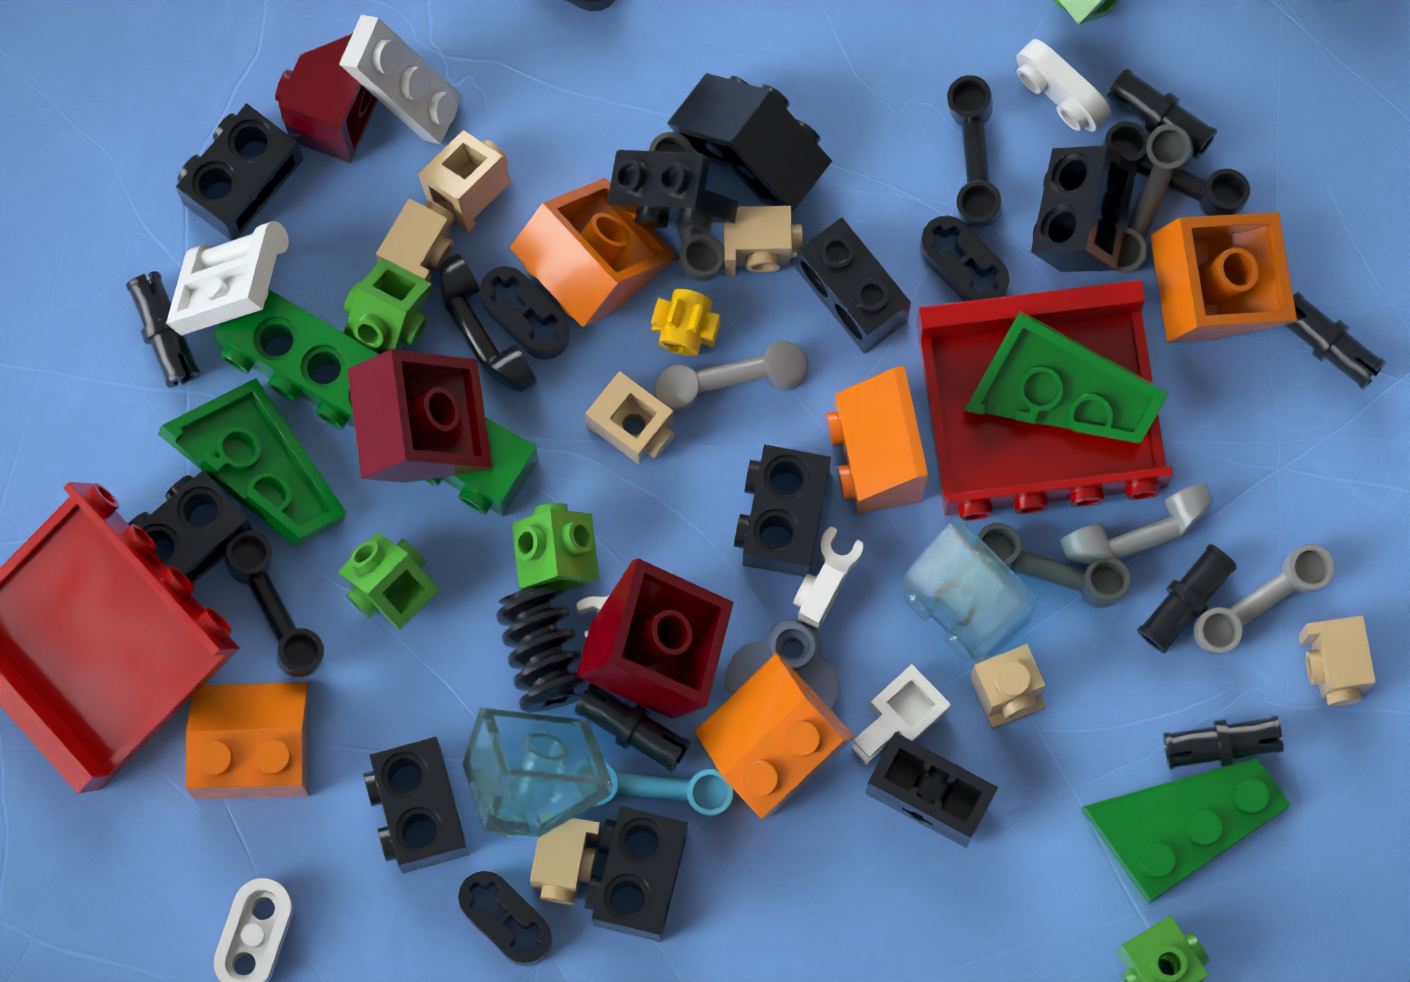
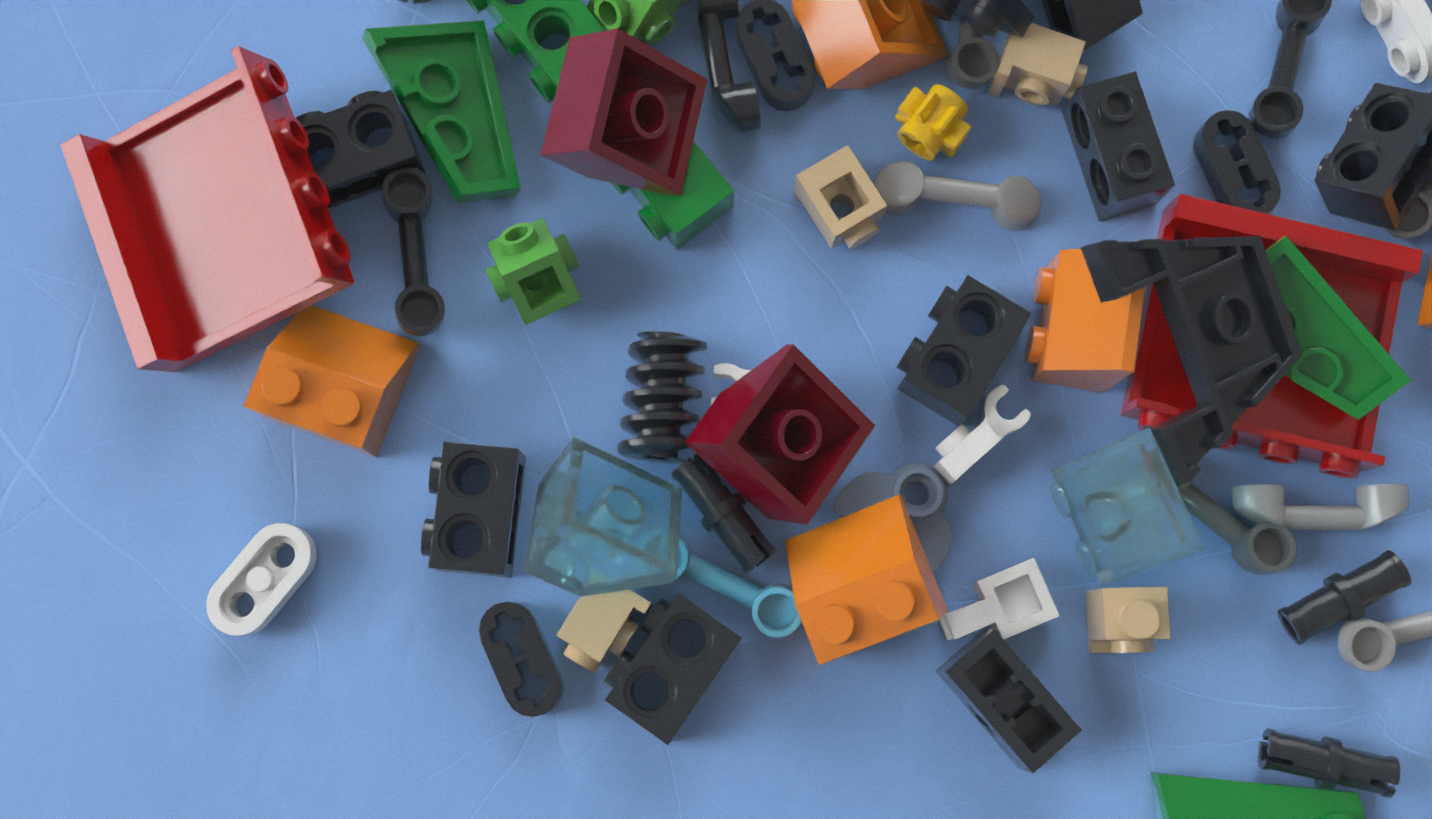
camera: 20 degrees right, 5 degrees up
(555, 548) = (714, 301): bright green brick -> none
(990, 404) = (1222, 320): none -> black wing

